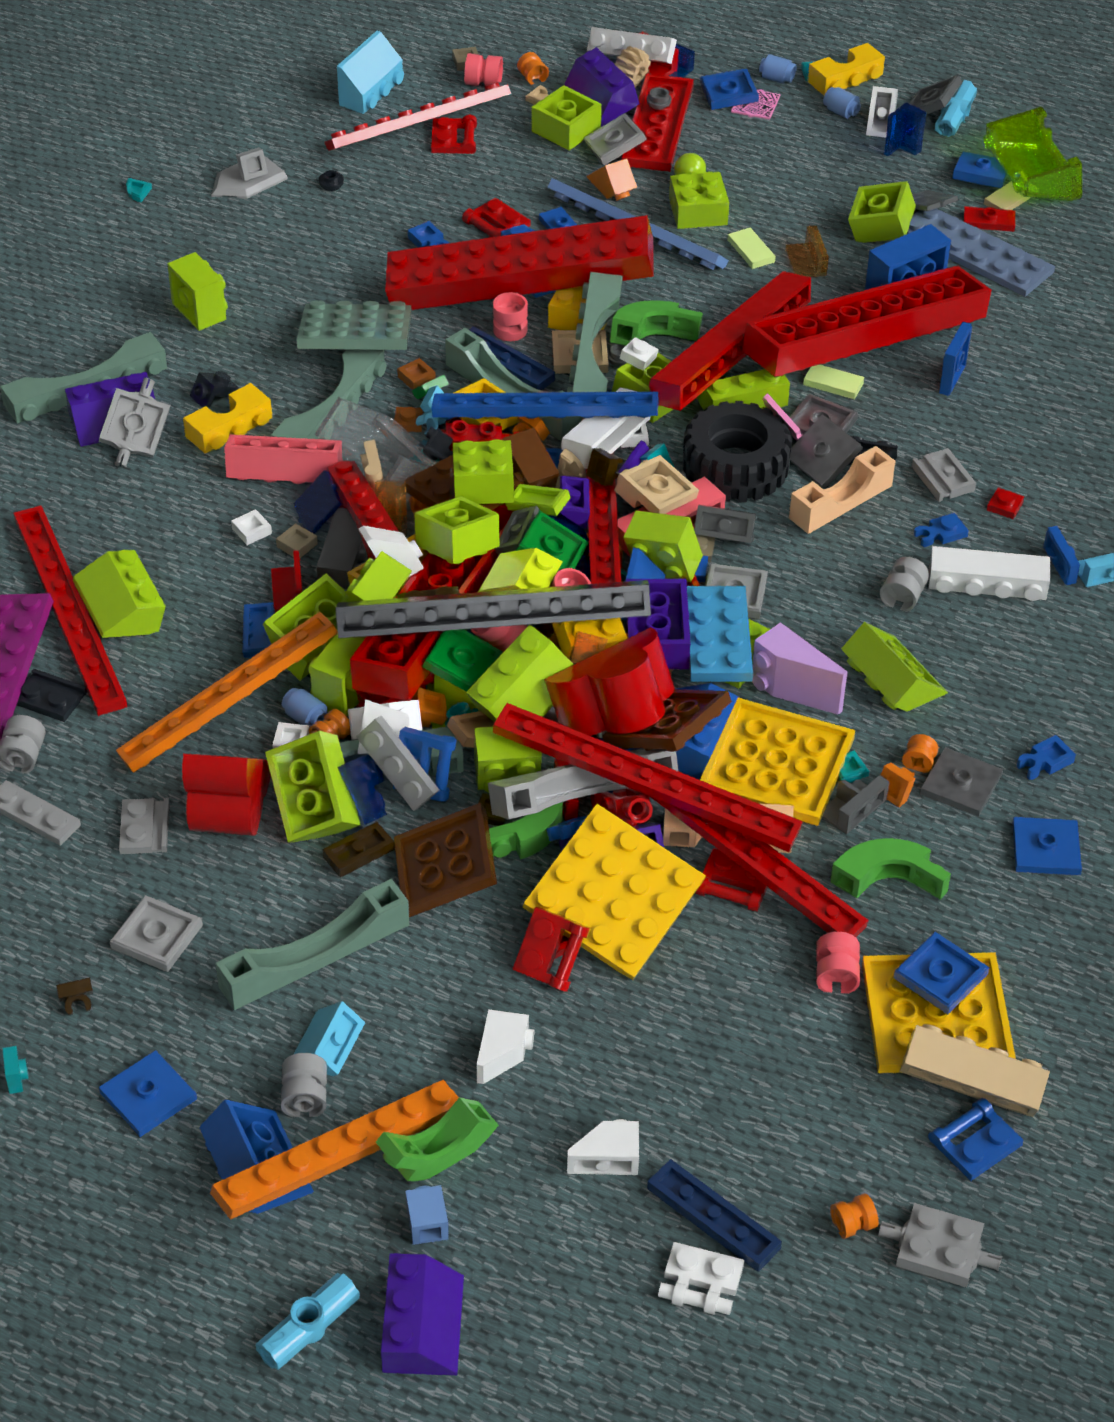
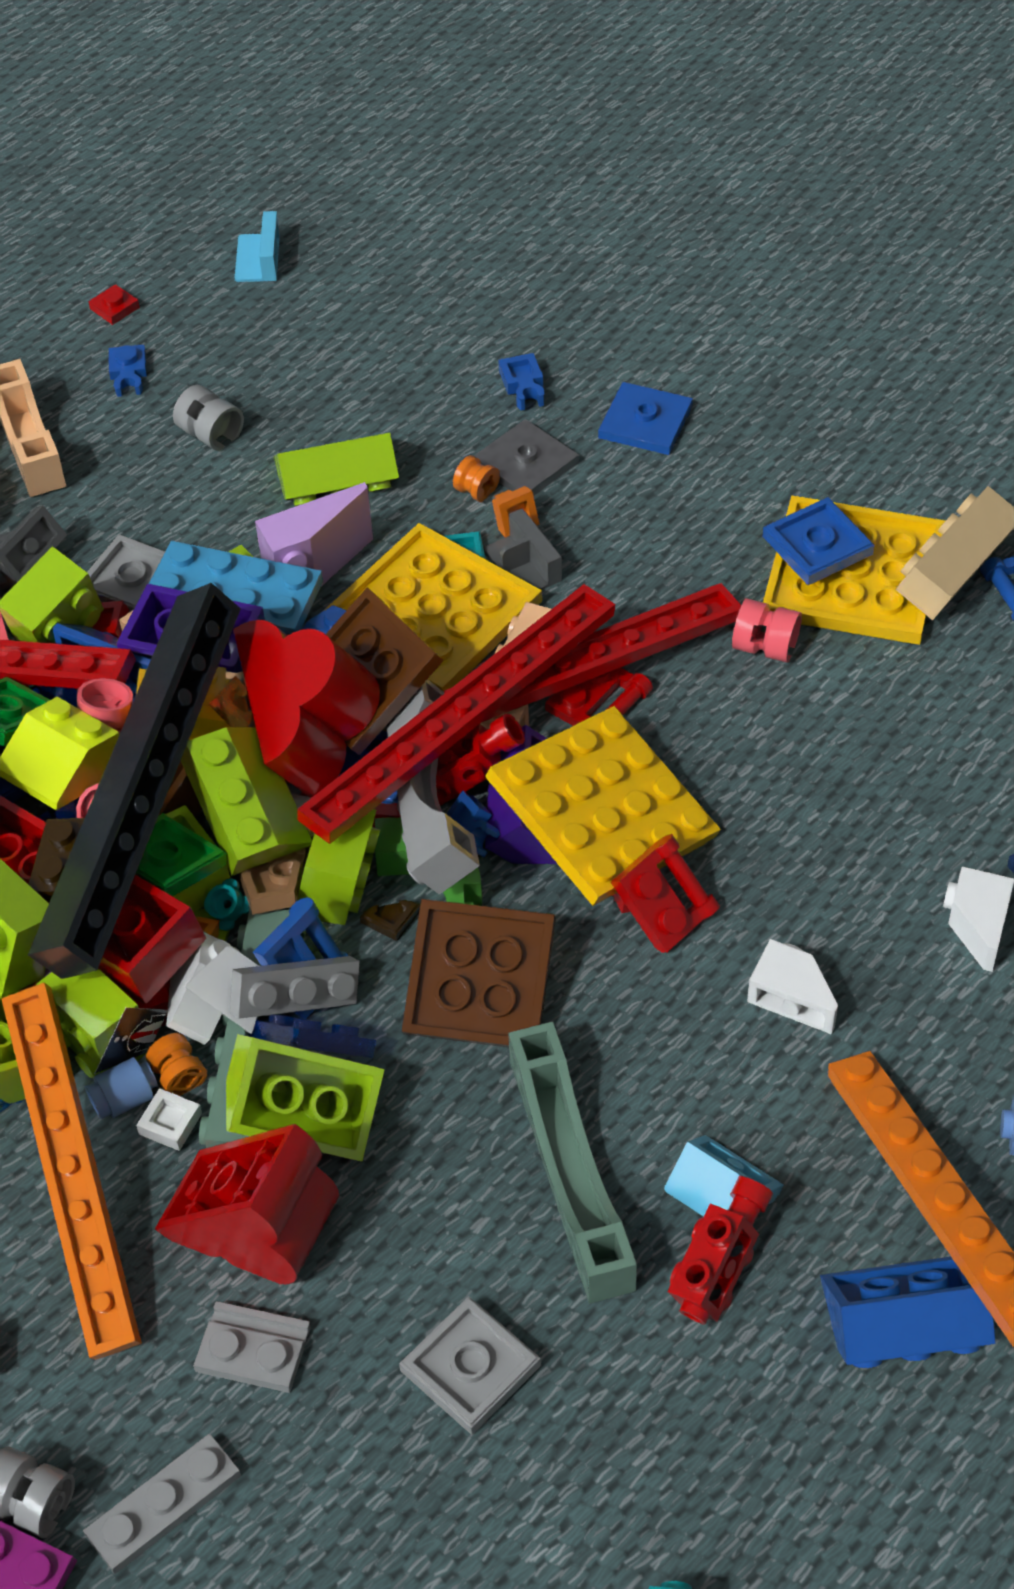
camera: 70 degrees left, 5 degrees up
(75, 991) = (549, 1494): dark brown tile -> none
(148, 1093) = (754, 1430): blue plate -> none
(261, 1037) = (709, 1258): none -> red brick
(304, 1085) = (805, 1222): light grey wheel -> none
(333, 693) = (132, 1036): none -> black sticker
(358, 849) = (407, 1079): dark brown plate -> none
(440, 1146) = (933, 1084): bright green arch -> none
(888, 859) = (627, 570): bright green arch -> none
(943, 475) = (41, 339): light grey plate -> none
(989, 573) = (227, 341): white brick -> none
(1061, 555) = (229, 279): blue plate -> none

